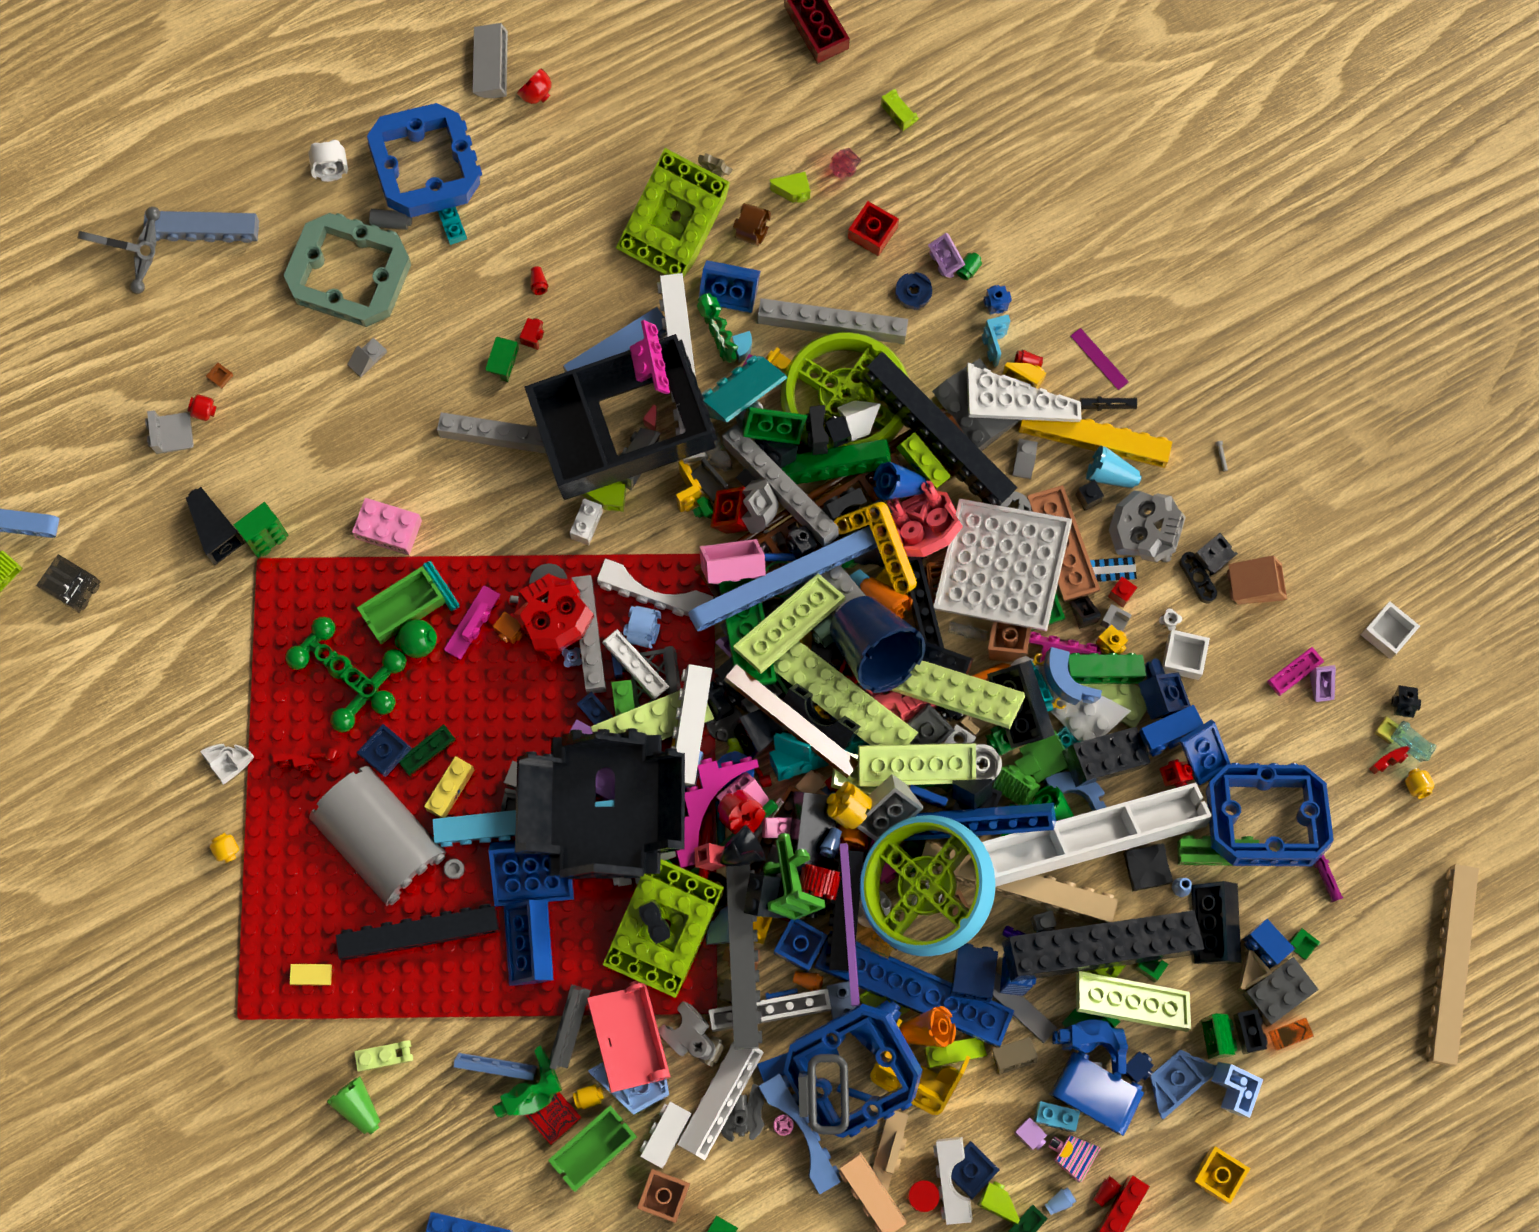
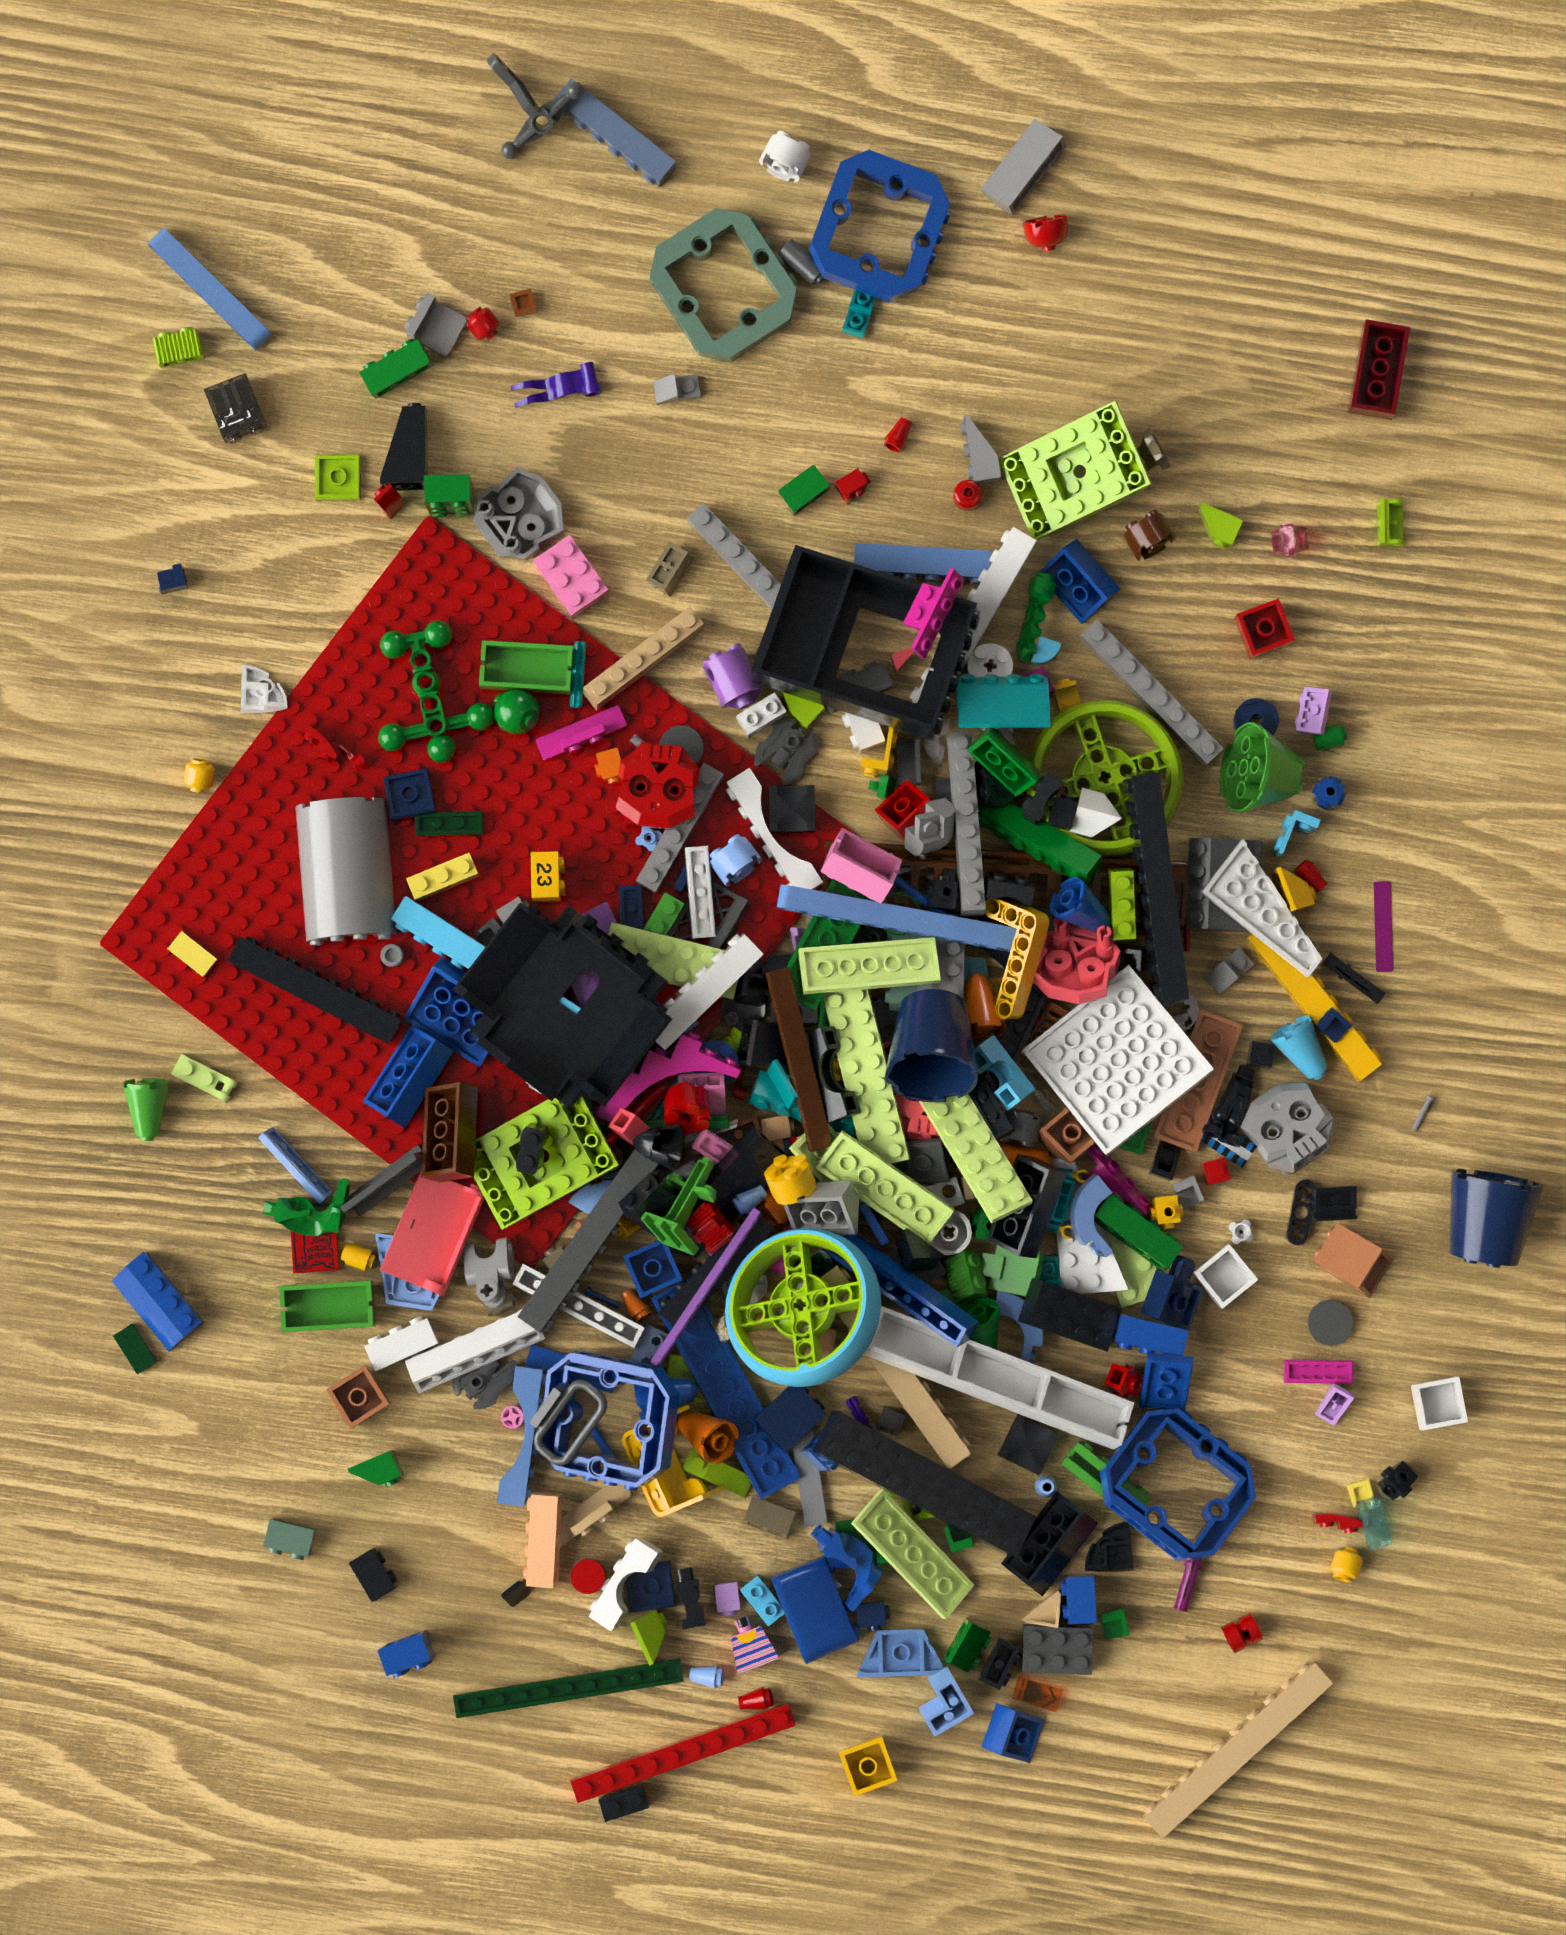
camera: 40 degrees right, 10 degrees up
(107, 730) = (172, 579): none -> dark blue panel
(162, 477) = (396, 368): none -> green brick
(175, 579) = (338, 477): none -> lime tile
(222, 565) = (389, 500): none -> red slope
(285, 408) = (562, 384): none -> dark purple flag
(325, 498) = (533, 505): none -> light grey brick
(450, 472) = (669, 568): none -> dark tan hinge
(477, 542) = (643, 658): none -> tan brick
(521, 732) = (546, 876): none -> yellow brick
(548, 510) = (732, 678): none -> medium lavender cylinder
(587, 957) = (449, 1132): none -> reddish brown brick
(604, 254) = (983, 459): none -> light grey slope
(613, 284) = (967, 502): none -> red head
(621, 529) = (789, 747): none -> dark grey piece
(655, 565) = (792, 809): none -> black brick
(662, 480) = (865, 733): none -> white brick
(711, 371) = (992, 654): none -> white brick
(940, 315) = (1258, 770): none -> bright green cone
(945, 630) = (1012, 1081): none -> medium azure arch
(957, 492) = (1134, 956): none -> black brick
(980, 654) = (1025, 1126): none -> dark grey brick
(1004, 1153) = (689, 1596): none -> black hips
(1099, 544) = (1231, 1108): none -> black piece
(1121, 438) = (1333, 1025): none -> dark blue panel
(1260, 896) = (1112, 1550): none -> black brick
(1276, 634) = (1330, 1322): none -> dark grey tile
(1297, 1073) = (1013, 1733): none -> blue slope
(1324, 482) = (1491, 1216): none -> dark blue cone
(1391, 882) = (1233, 1633): none -> red wheel

